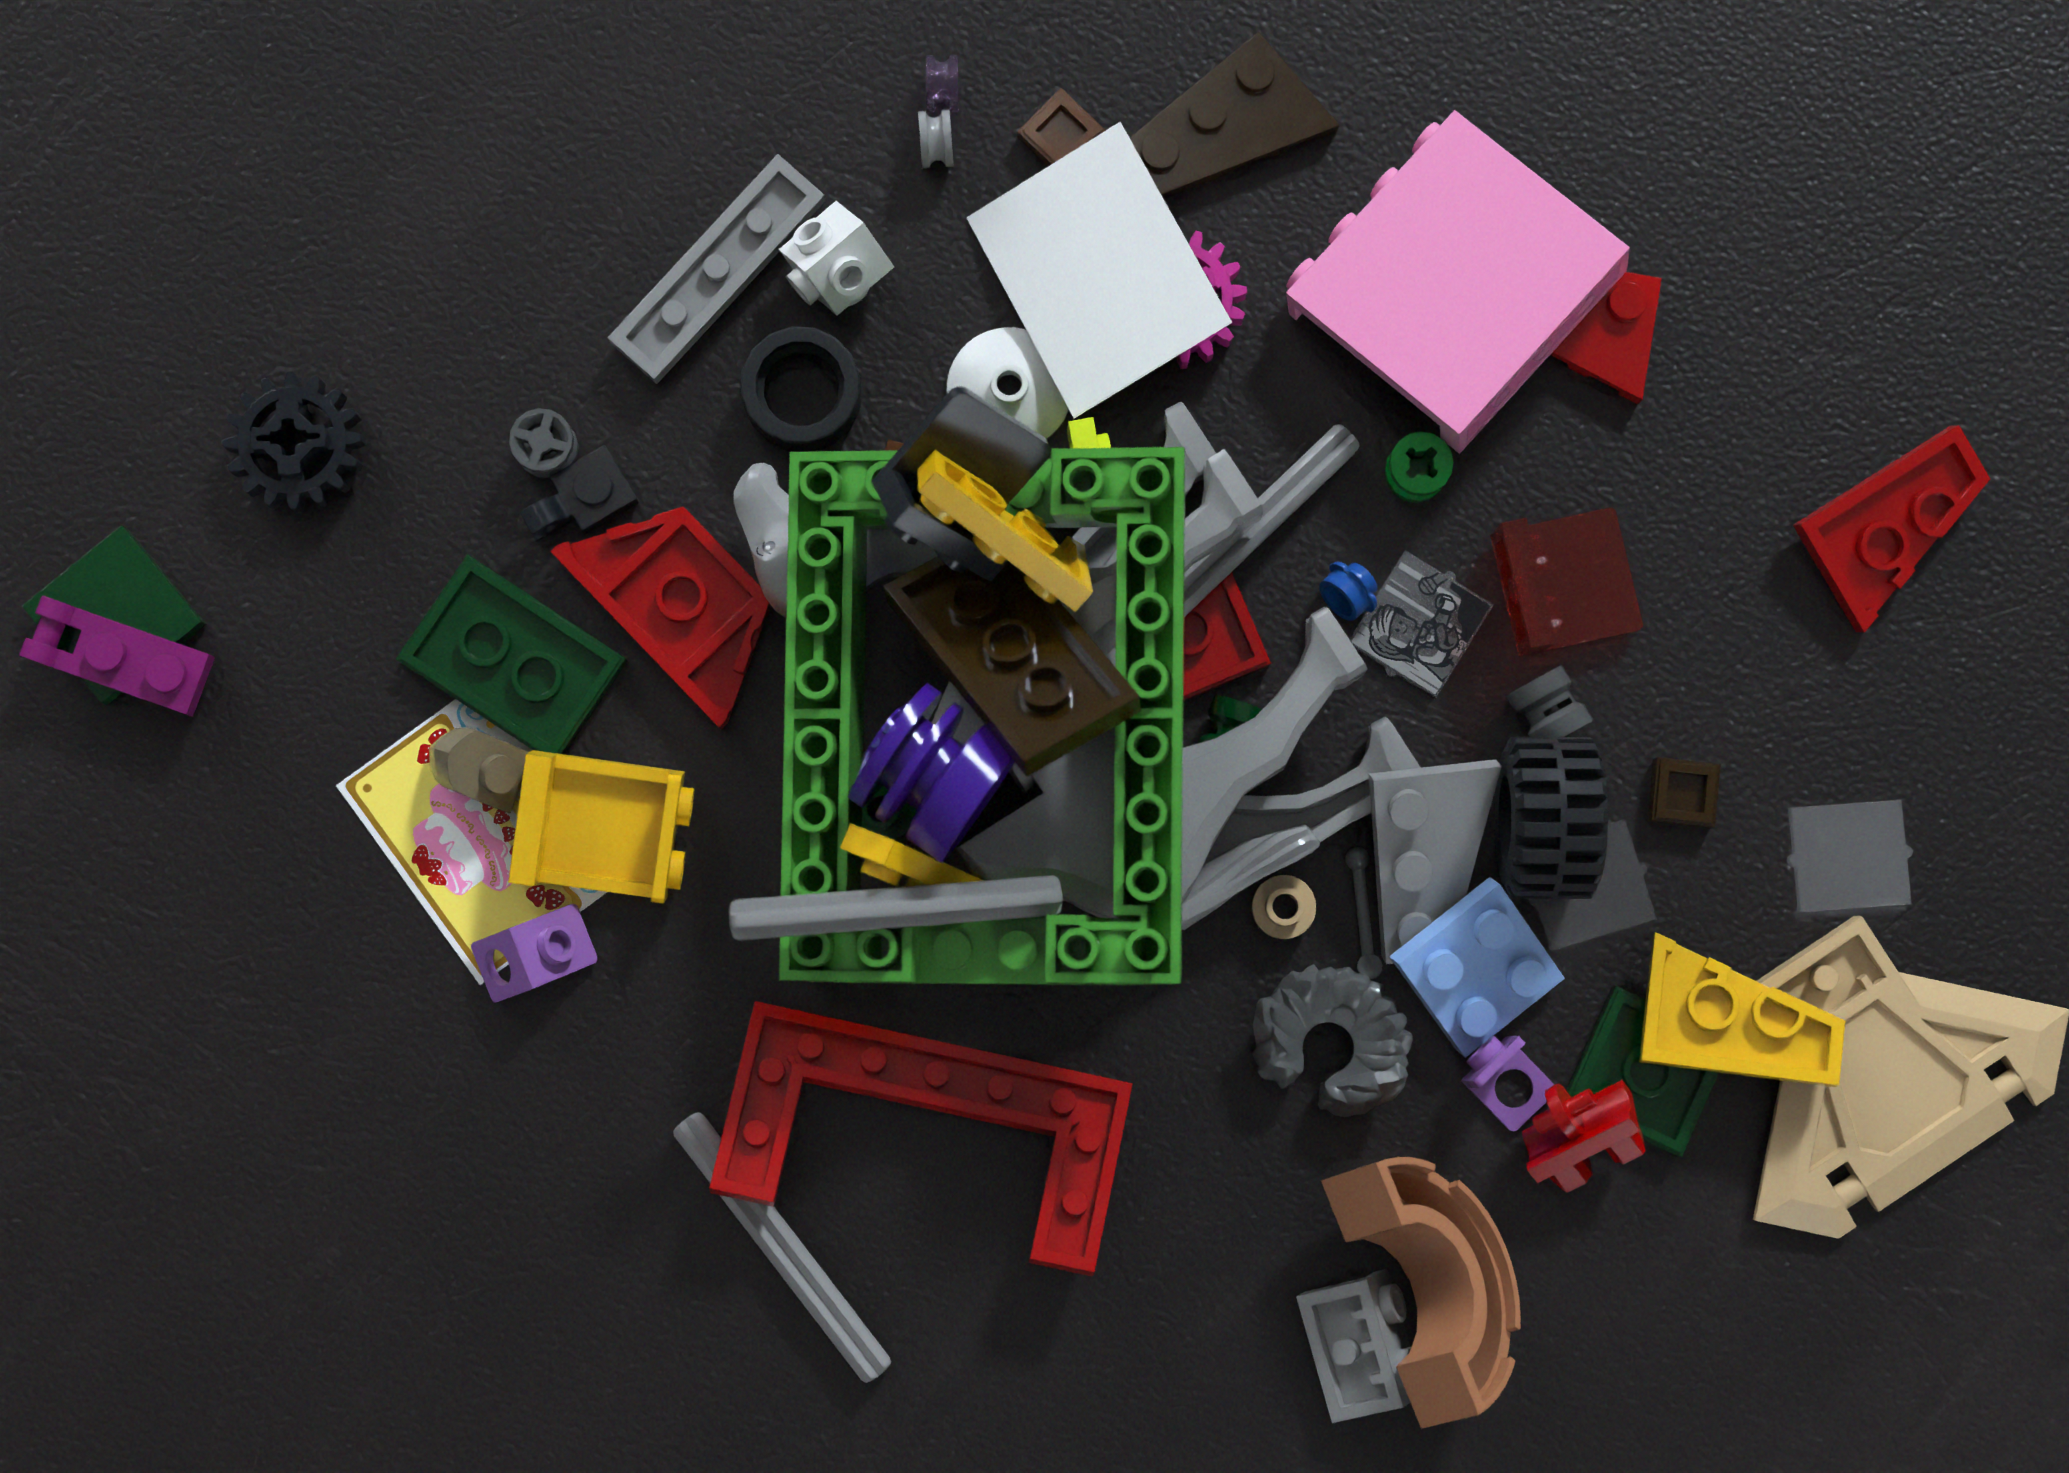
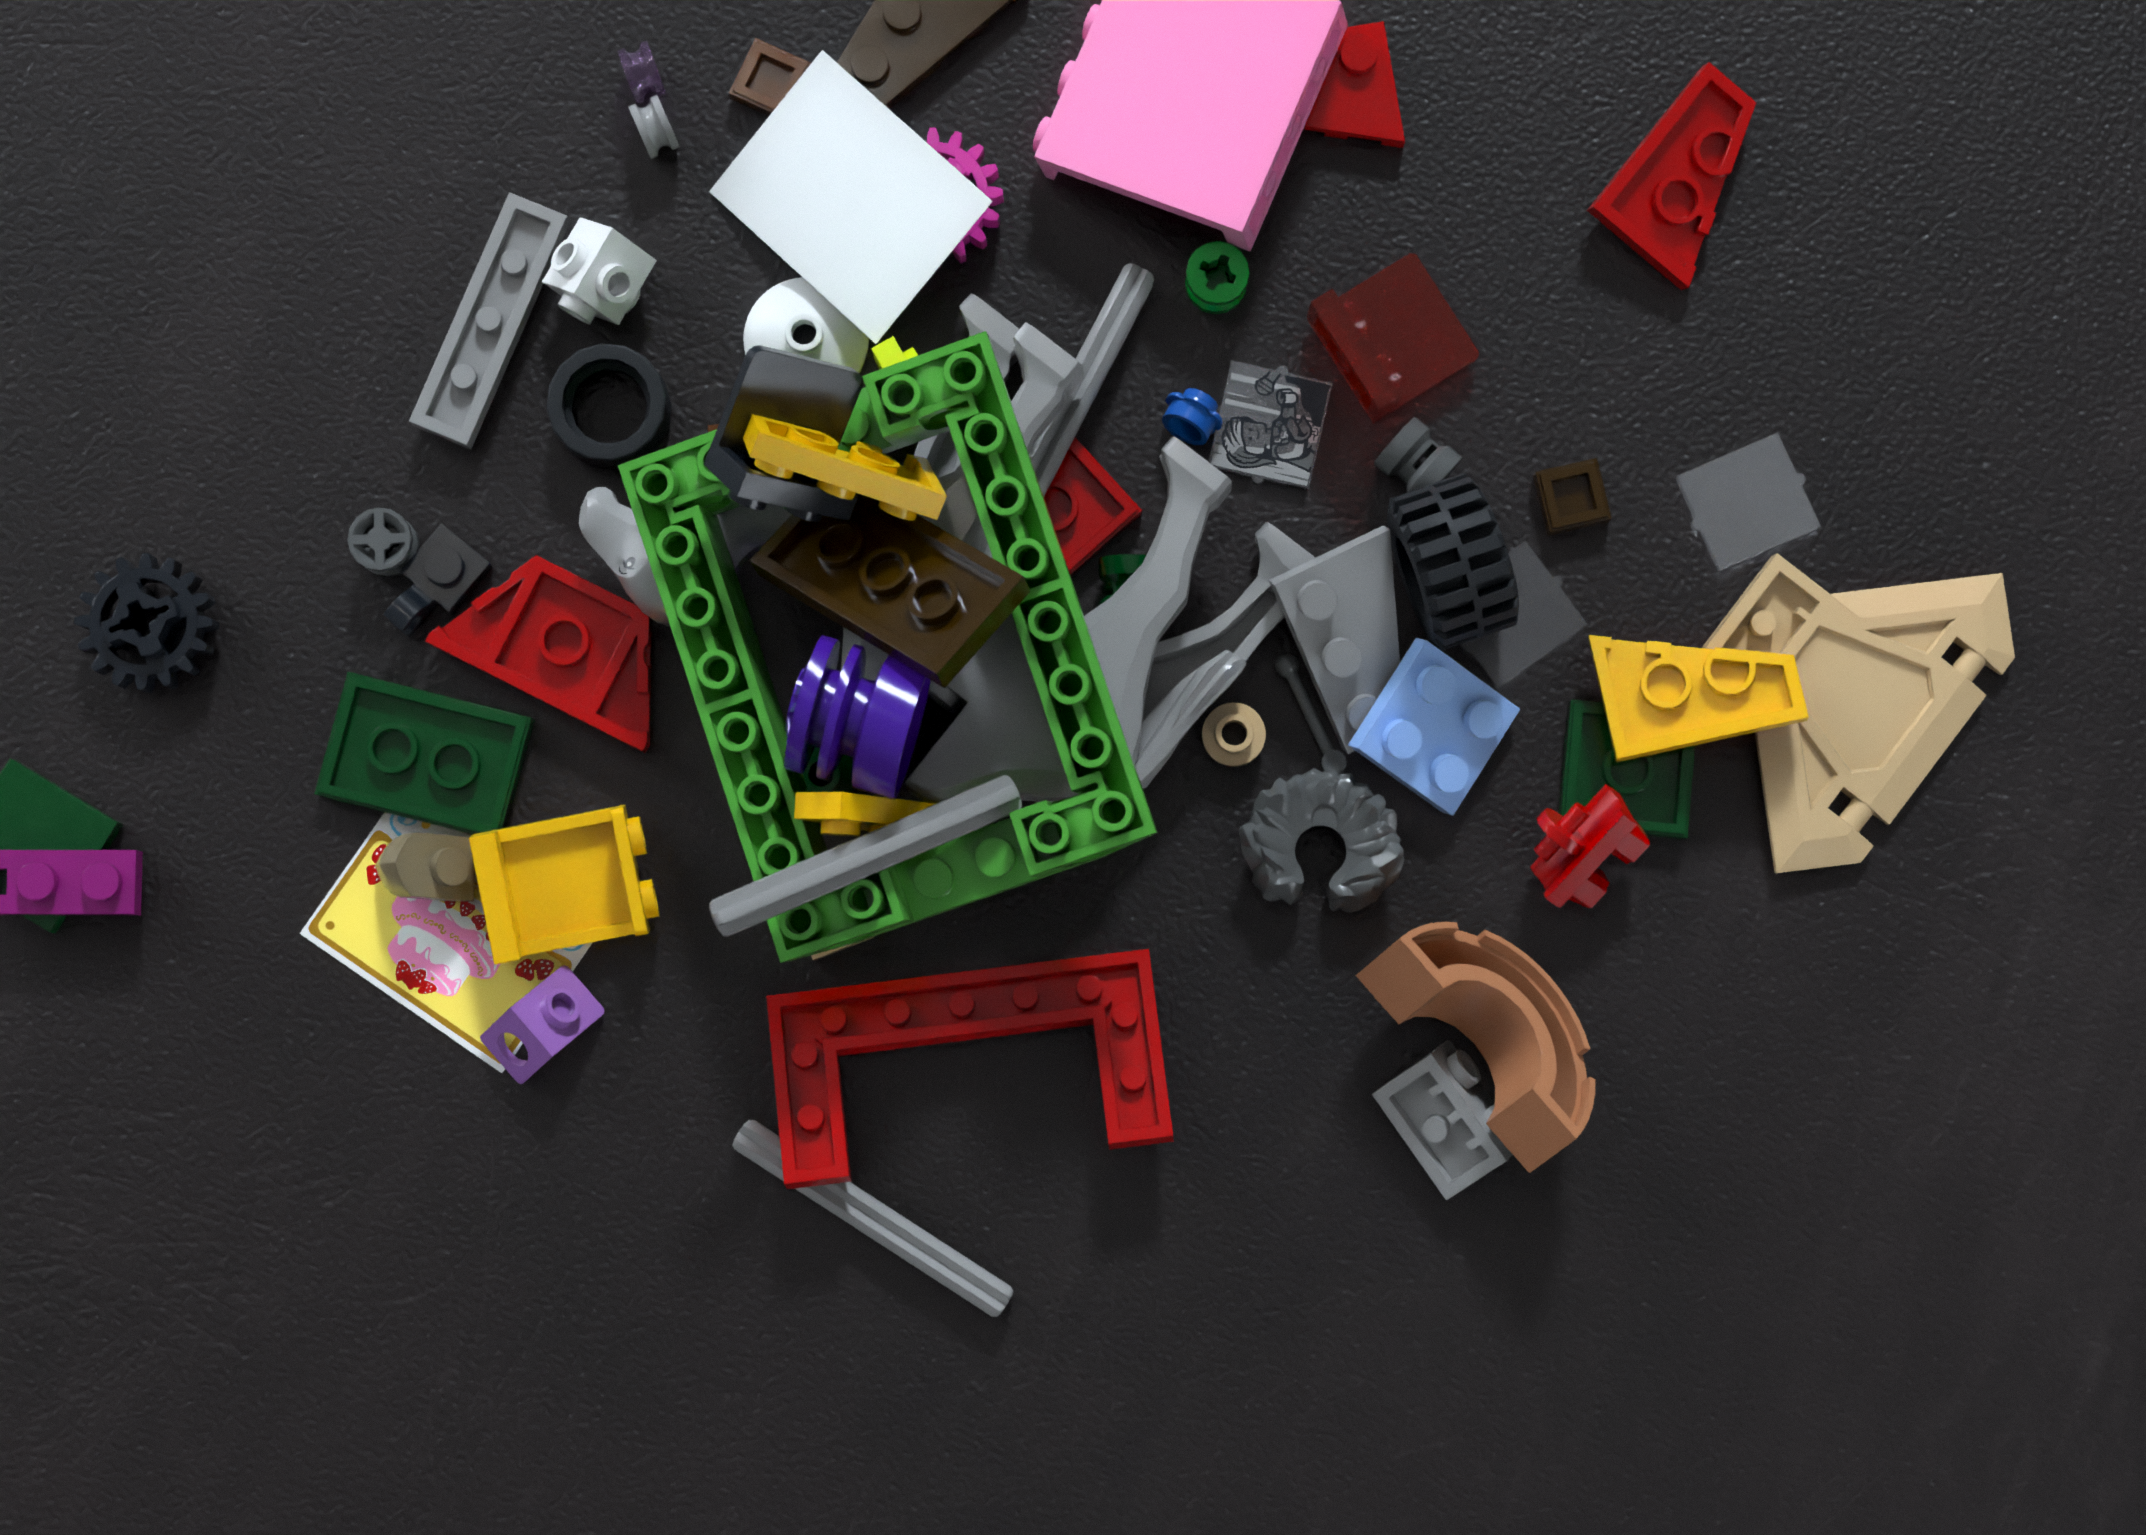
camera: 10 degrees left, 0 degrees up
(1491, 1061) = (1479, 810): medium lavender bracket -> none

